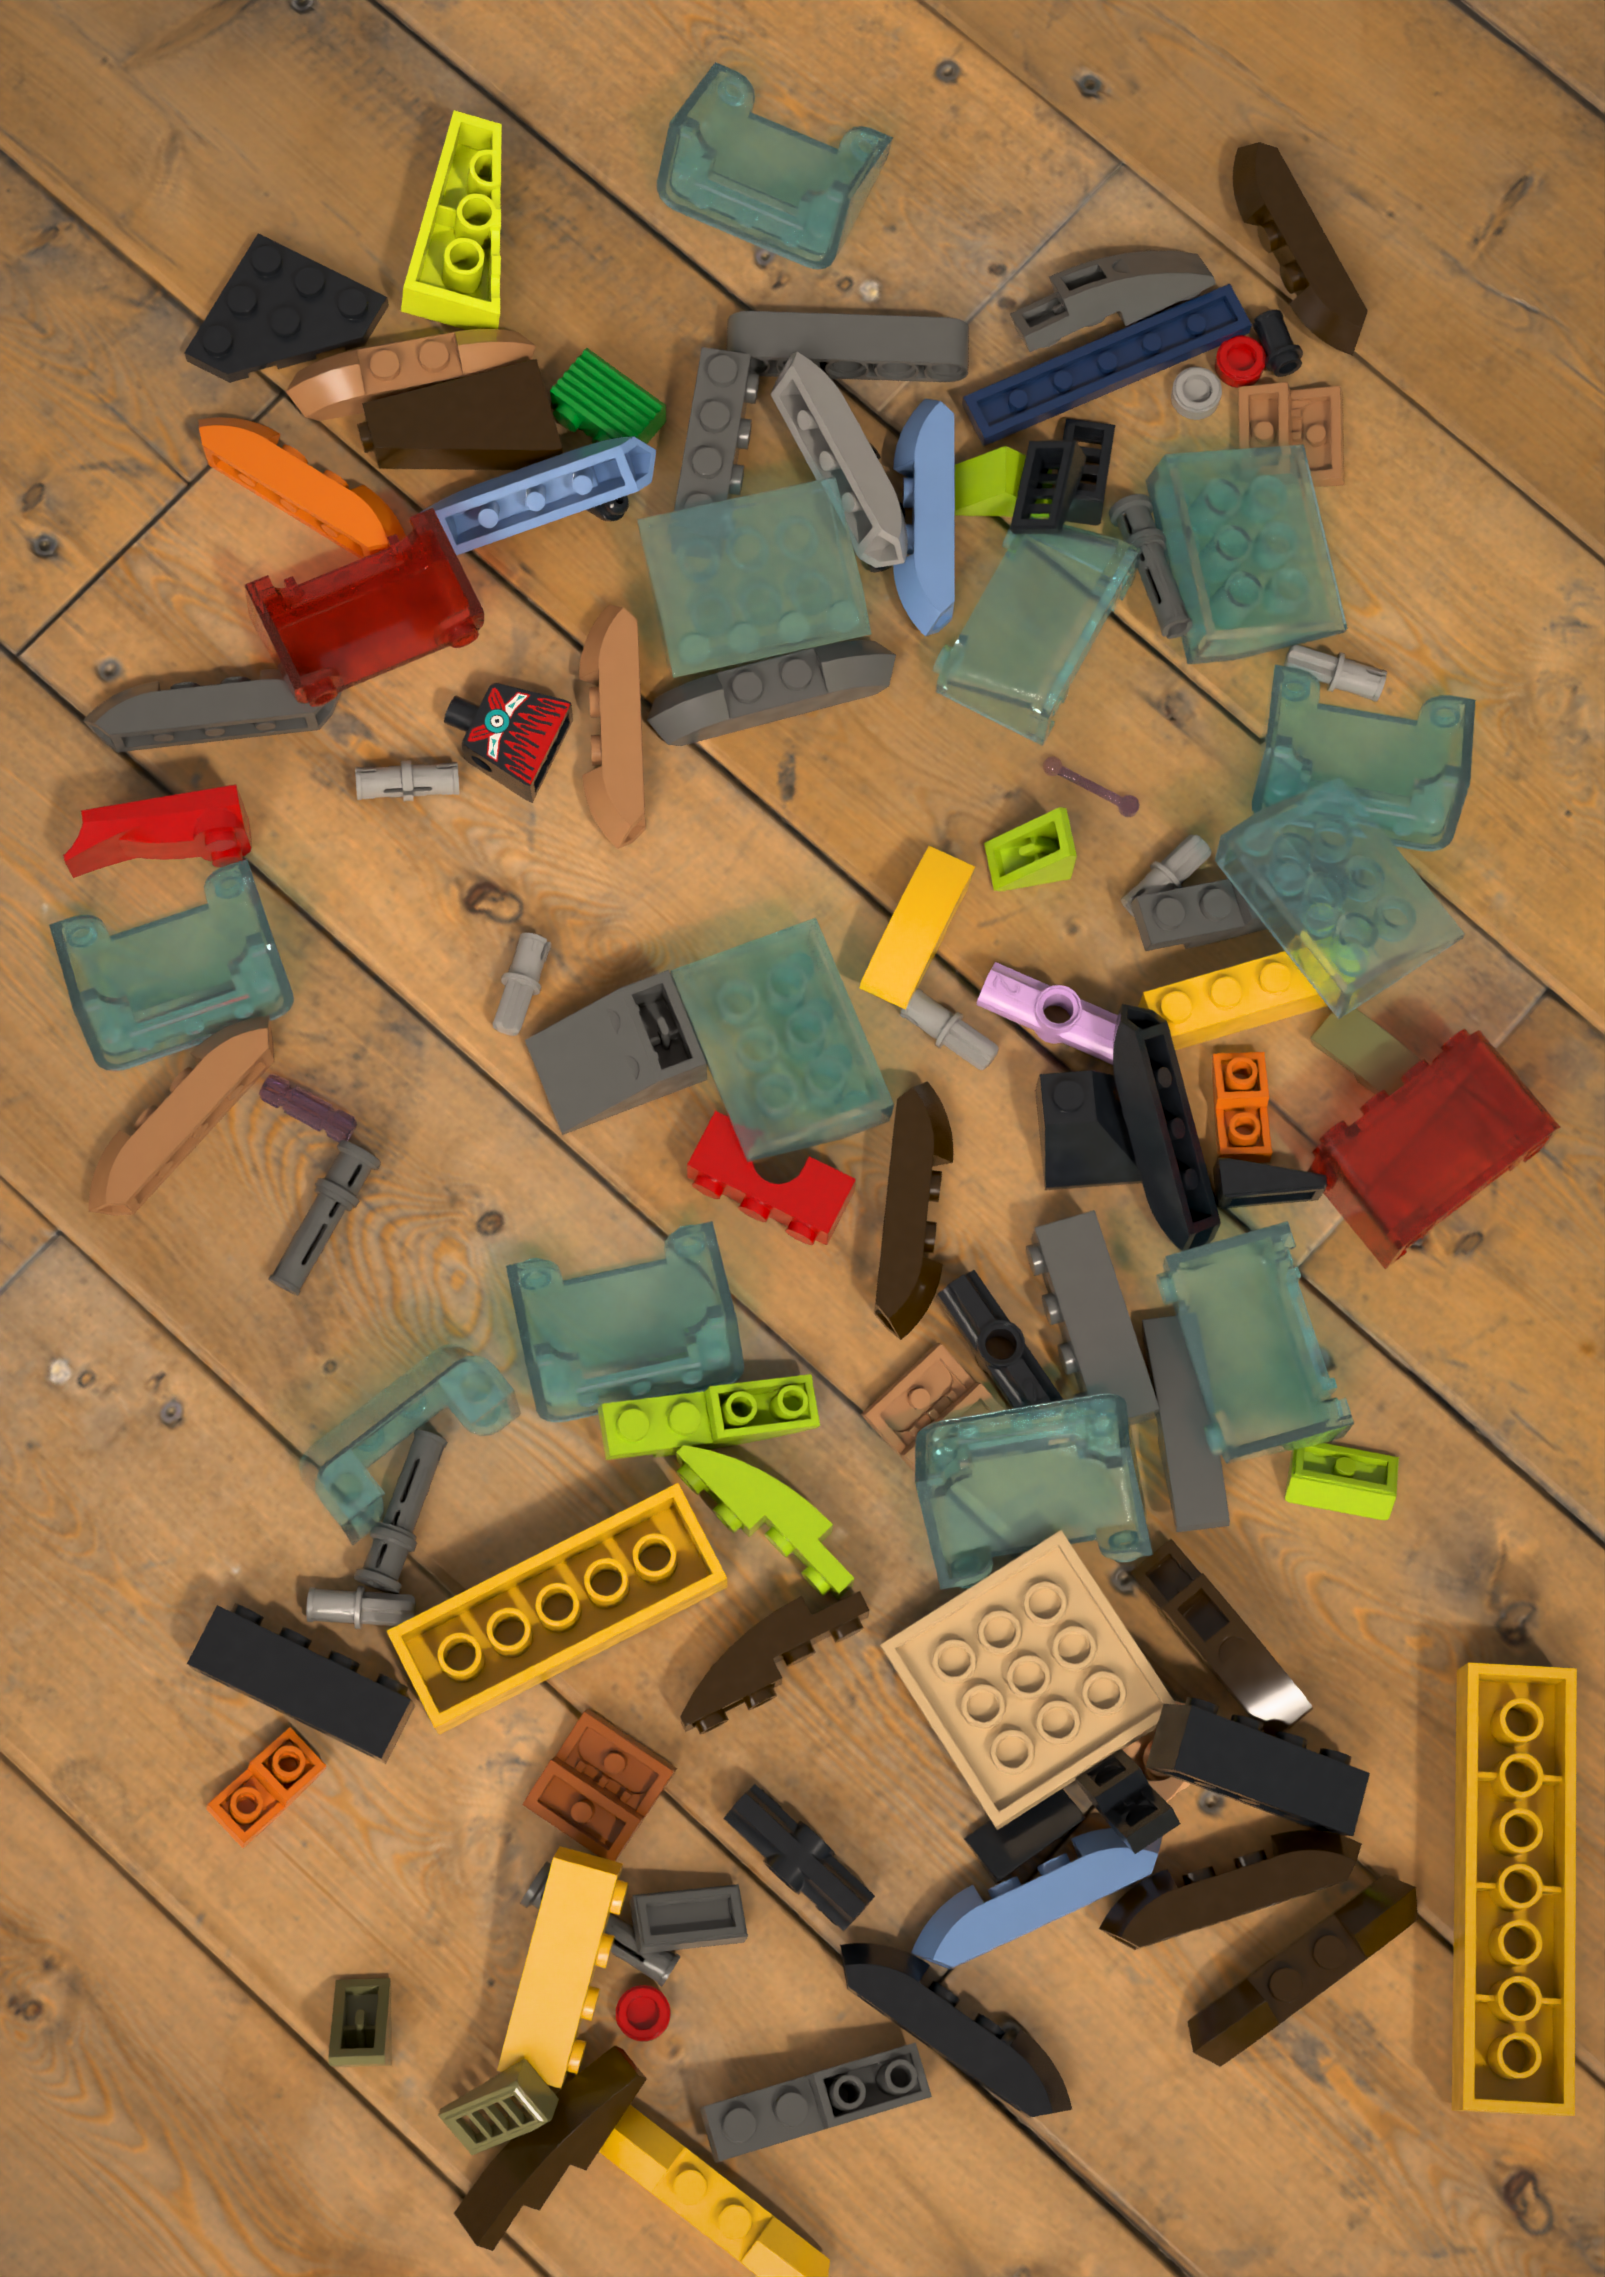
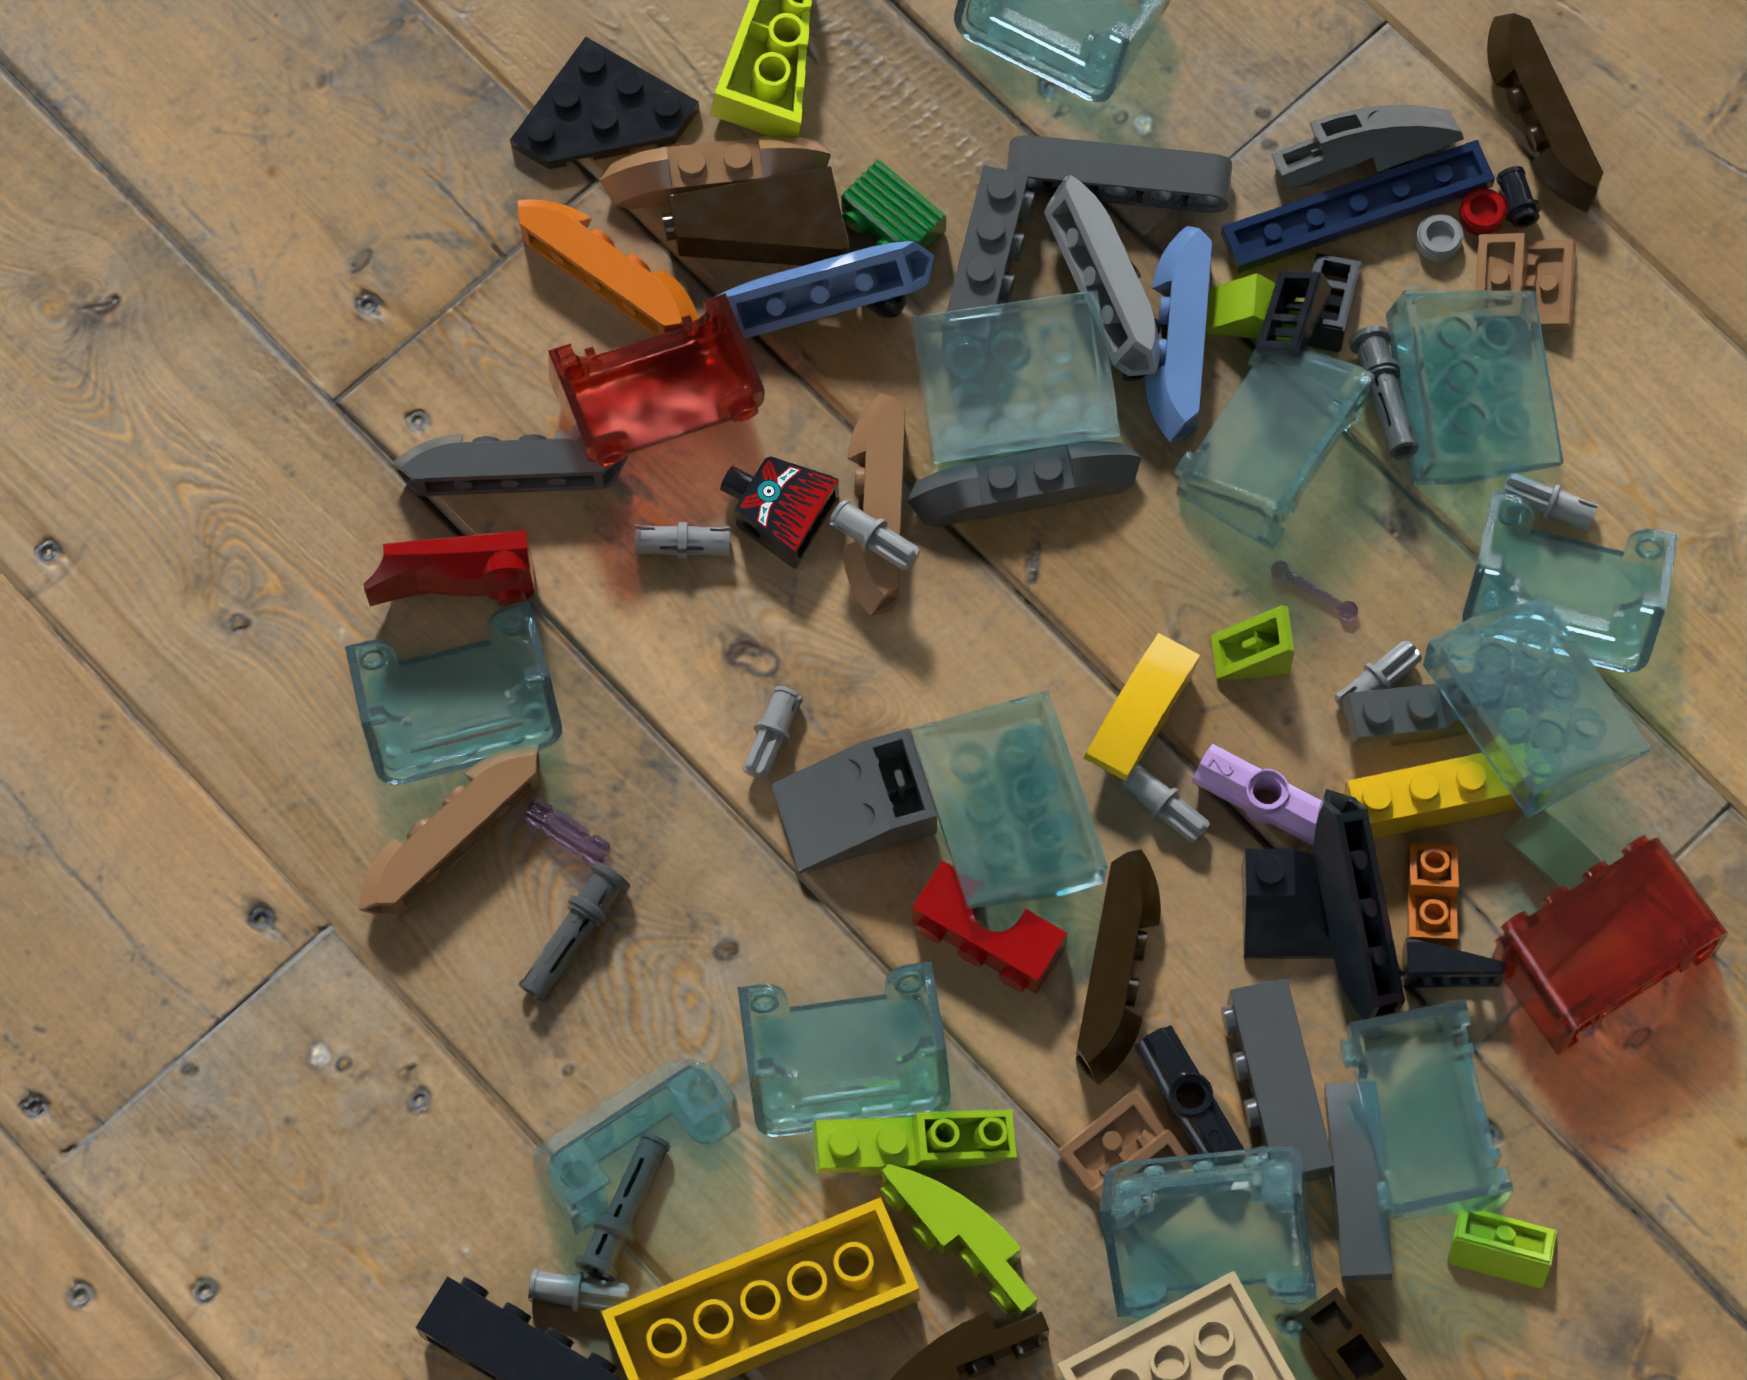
camera: 10 degrees right, 5 degrees down
(615, 762) = (874, 535): none -> light grey axle

